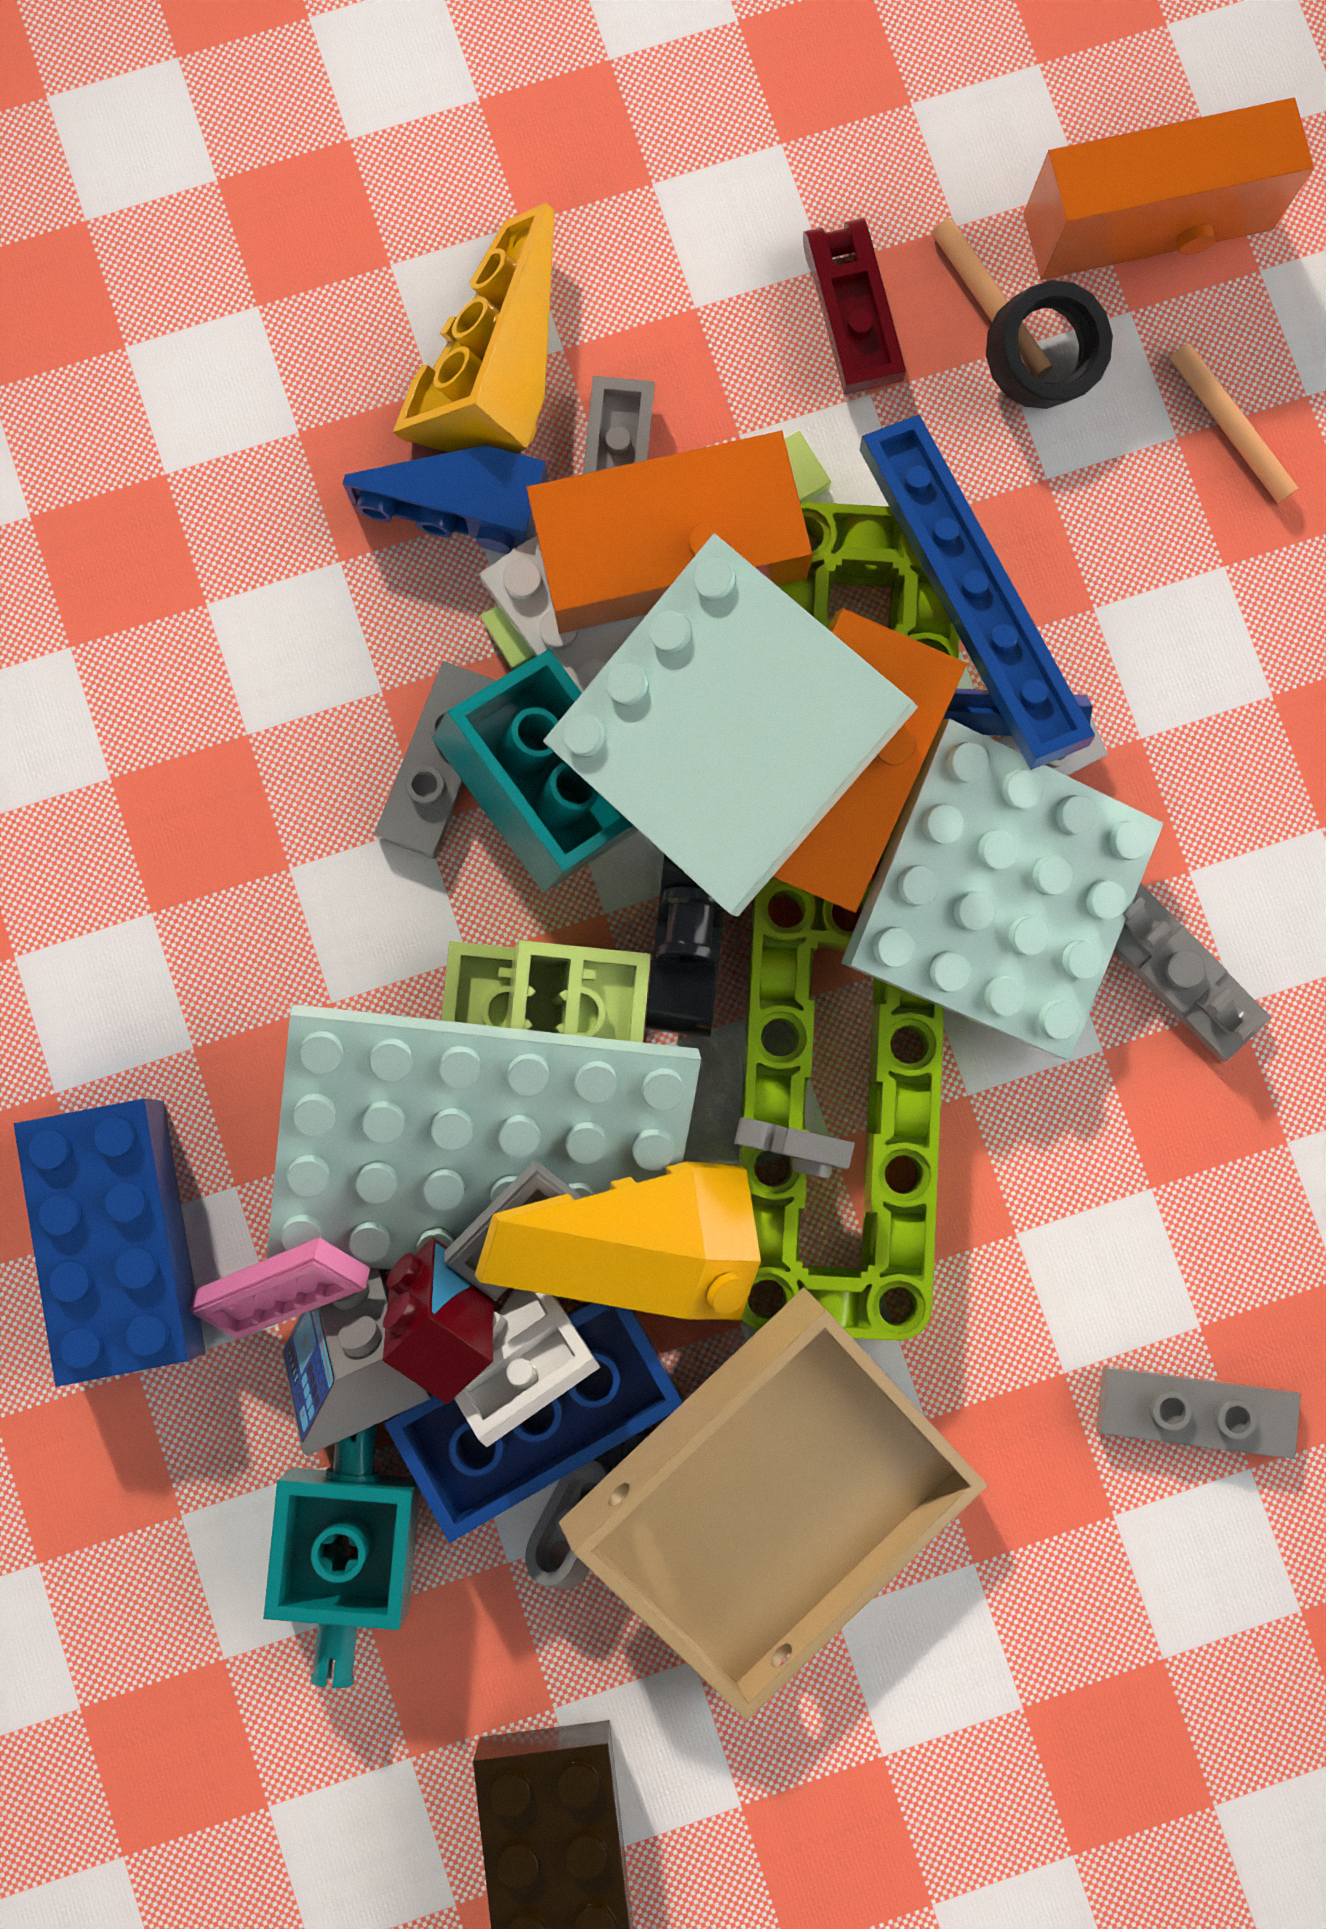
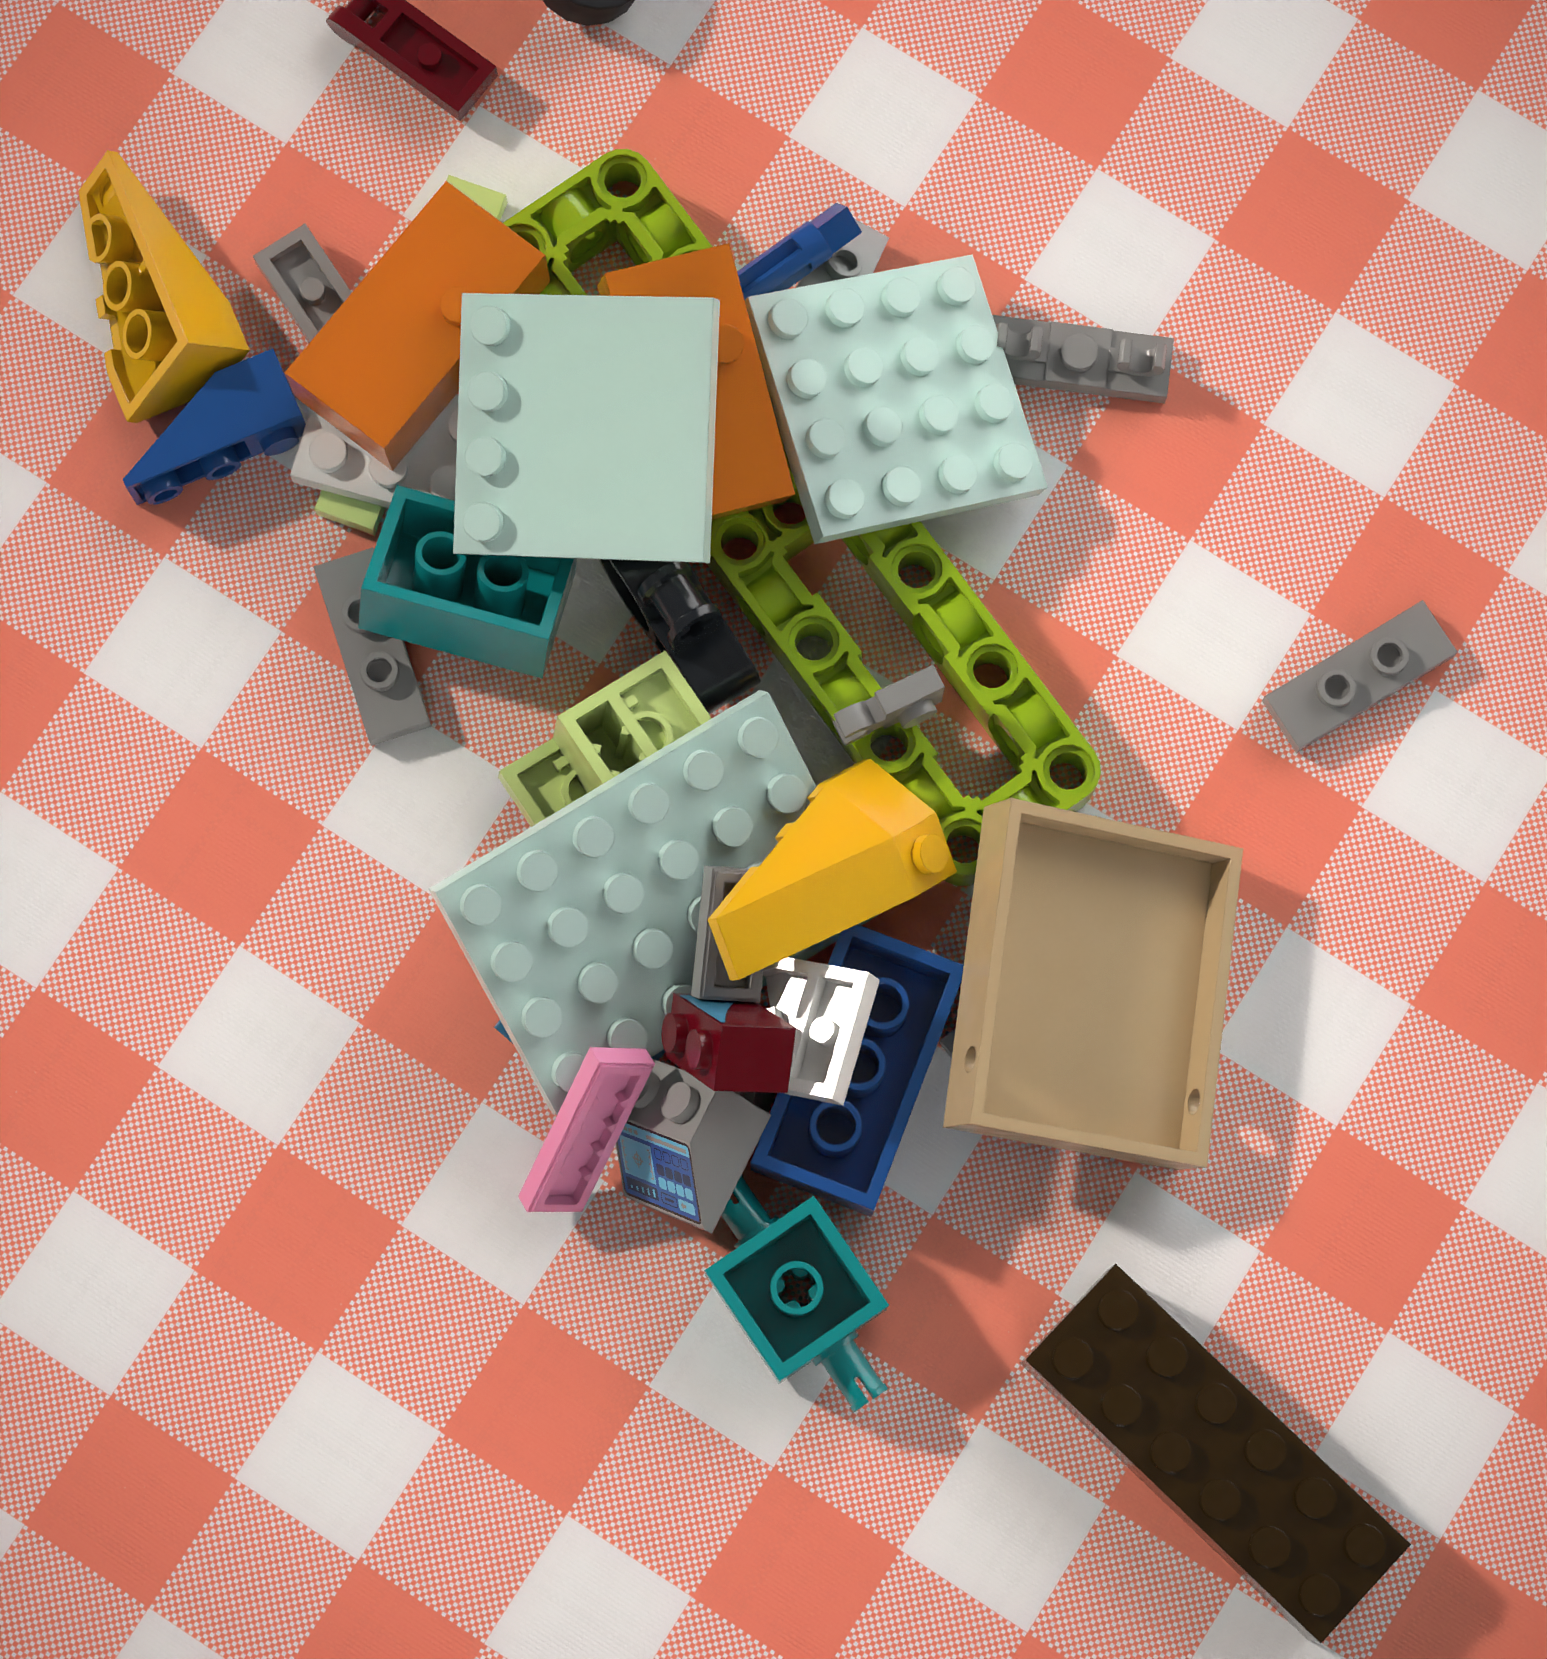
camera: 35 degrees left, 5 degrees down
(109, 1240) = (420, 1210): blue brick -> none
(547, 1545) = (953, 1150): light grey plate -> none
(976, 593) = (688, 189): blue plate -> none

